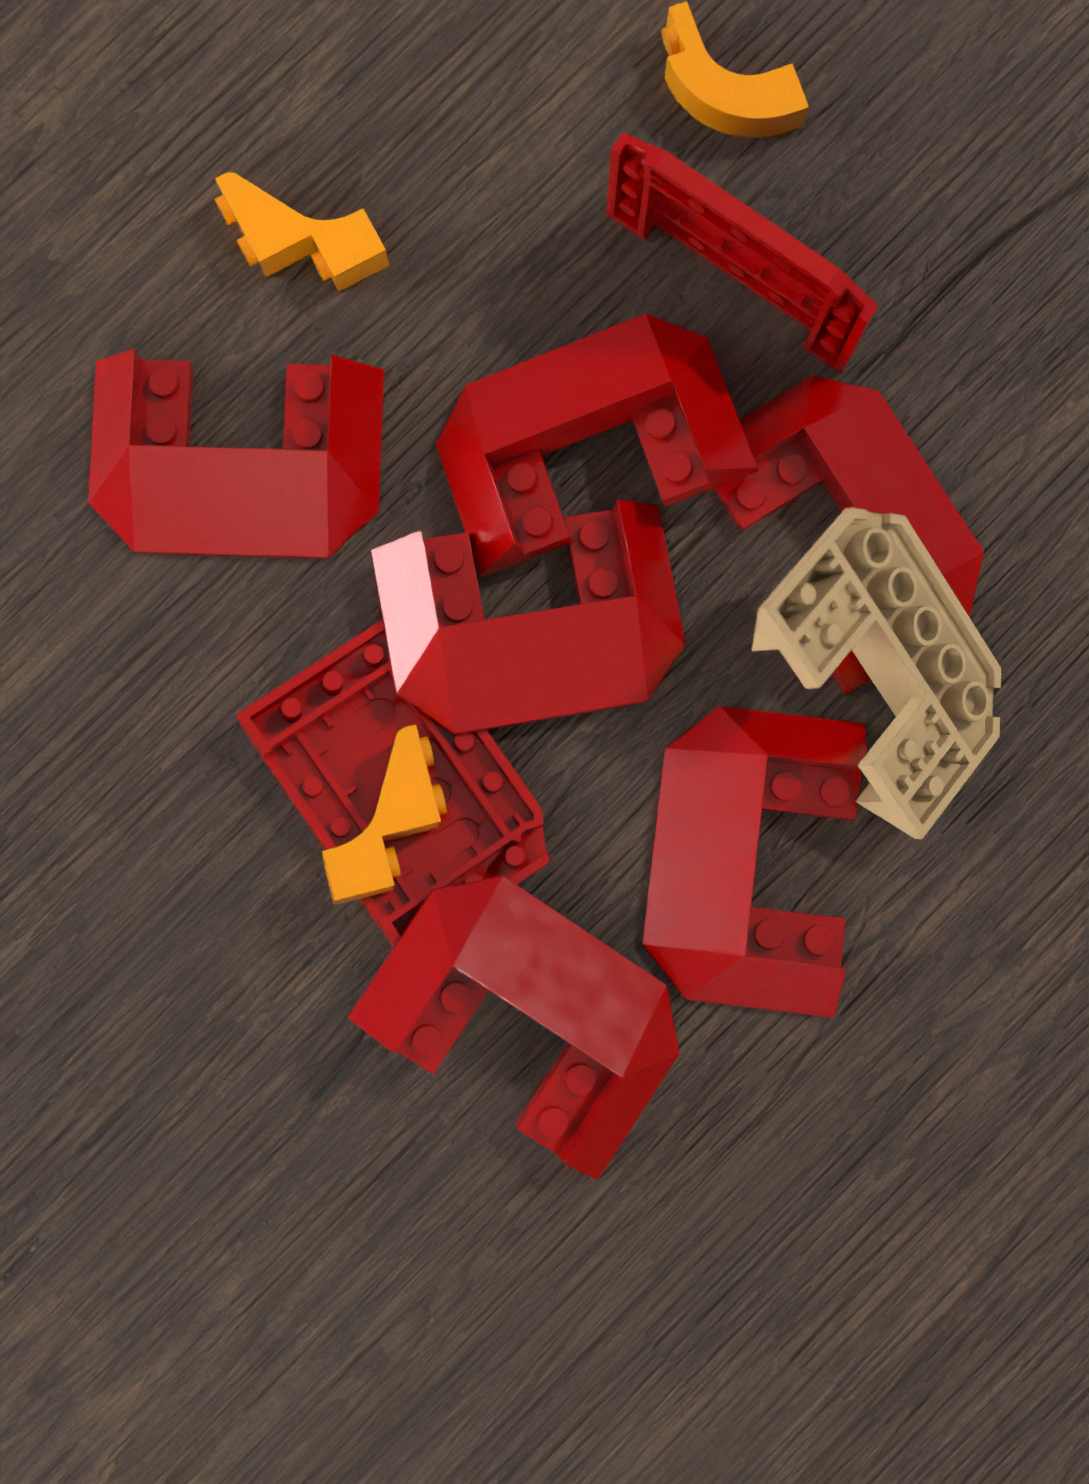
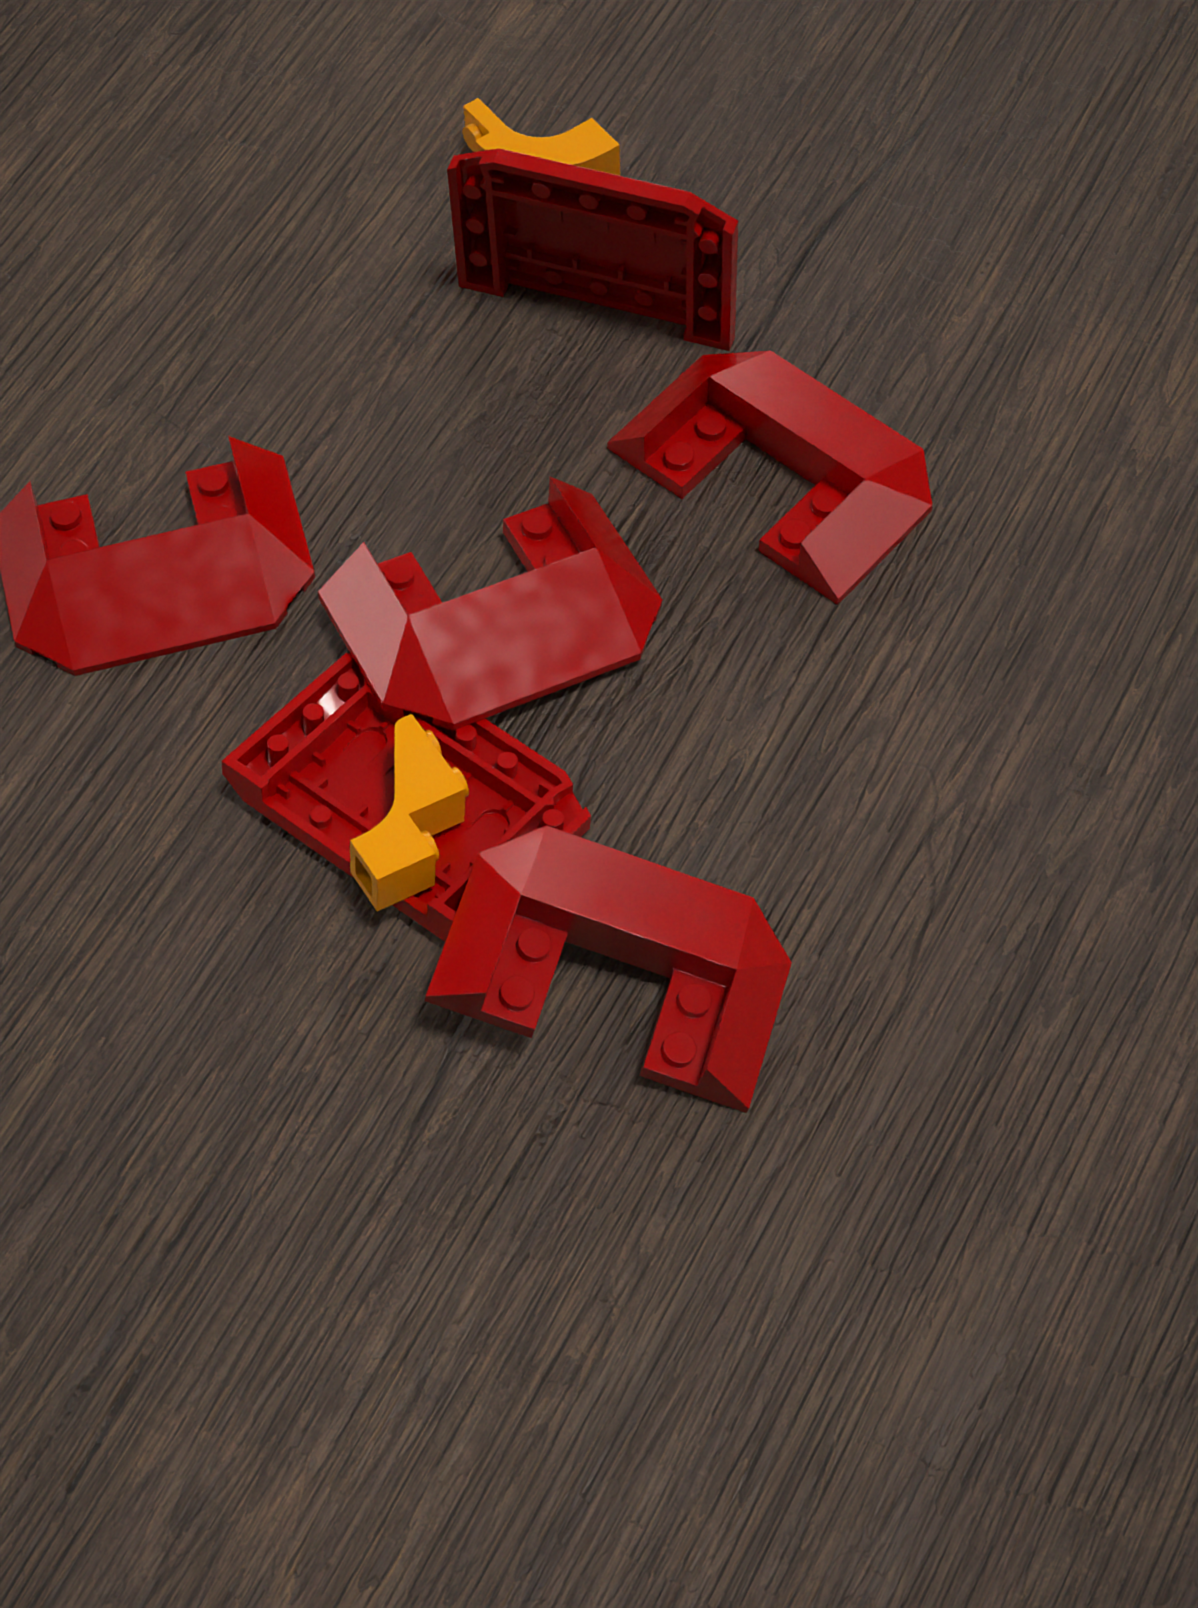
camera: 15 degrees left, 25 degrees down
(280, 236) = (151, 369): light orange arch -> none
(619, 375) = (418, 473): red slope -> none
(706, 857) = (755, 781): red slope -> none
(884, 598) = (826, 473): tan slope -> none

